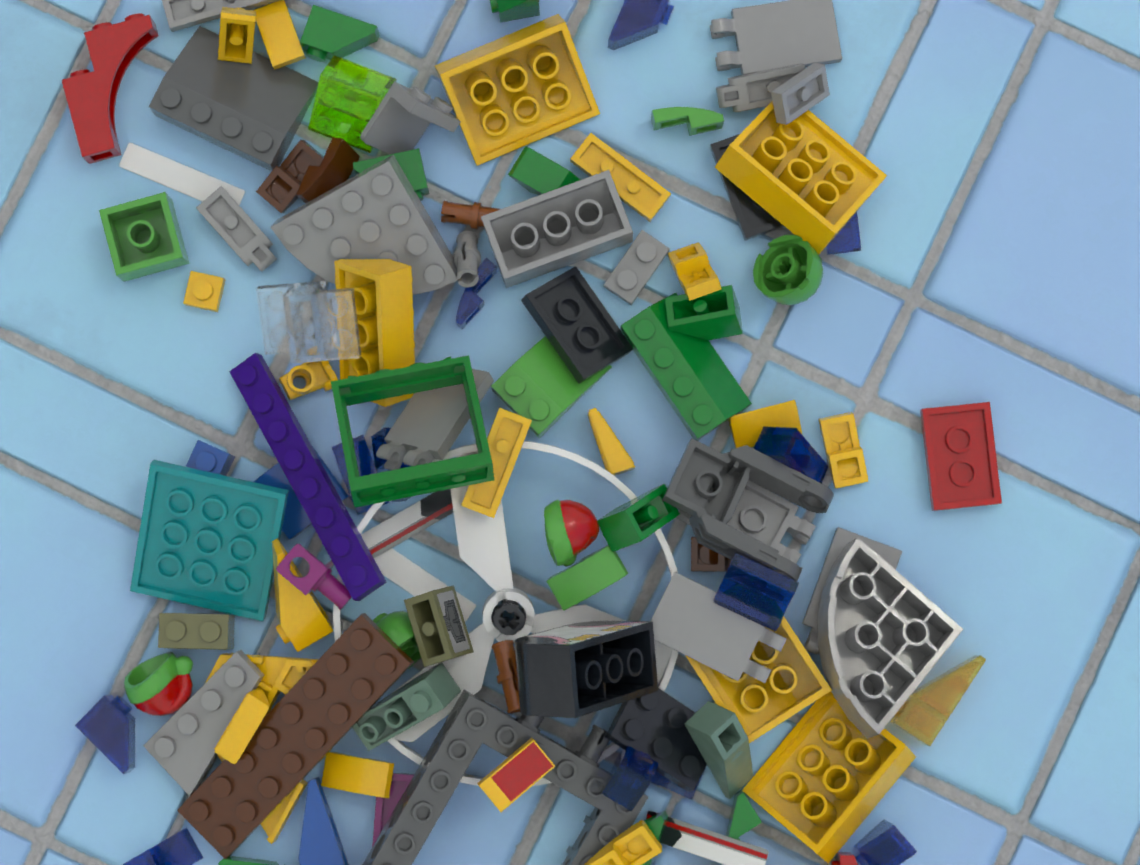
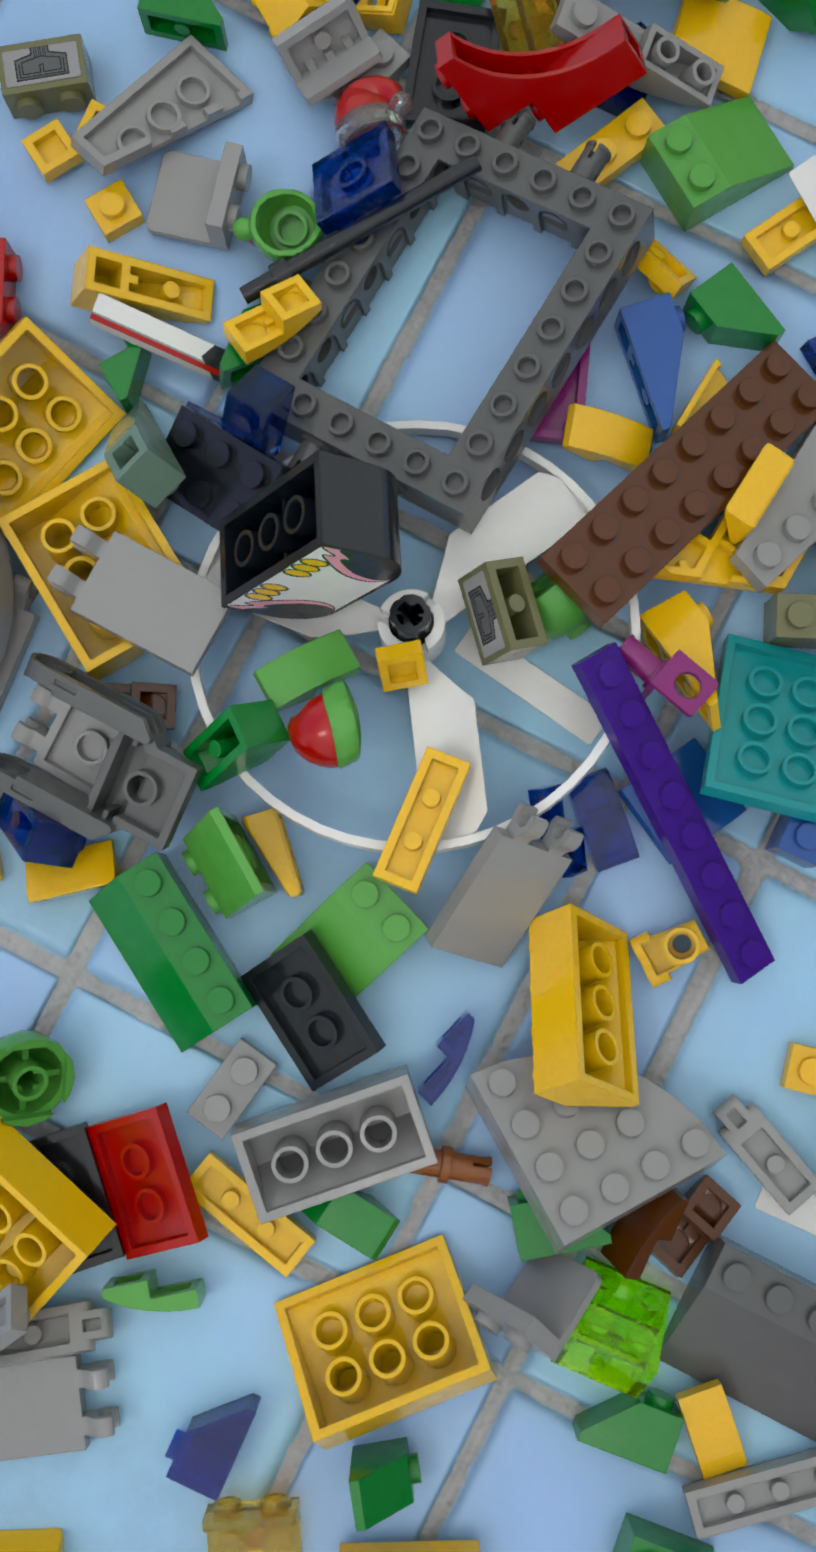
camera: 175 degrees left, 0 degrees up
(236, 35) = (772, 1432): yellow slope -> none
(309, 322) = (671, 1022): clear bracket -> none
(407, 706) = (540, 513): sand green slope -> none
(408, 522) = (542, 756): sticker -> none
(419, 478) = (527, 791): green window -> none
(467, 259) = (457, 1103): light grey pin -> none
(506, 663) = (412, 546): dark orange pin -> none
(515, 581) = (401, 665): none -> yellow plate
(516, 774) = (405, 411): red tile -> none
(643, 430) = (227, 863): none -> bright green slope
(694, 271) = (152, 1076): yellow slope -> none
(695, 198) = (147, 1182): none -> red plate
(705, 317) = (140, 1021): green slope -> none
(755, 592) = (85, 641): clear blue panel -> none

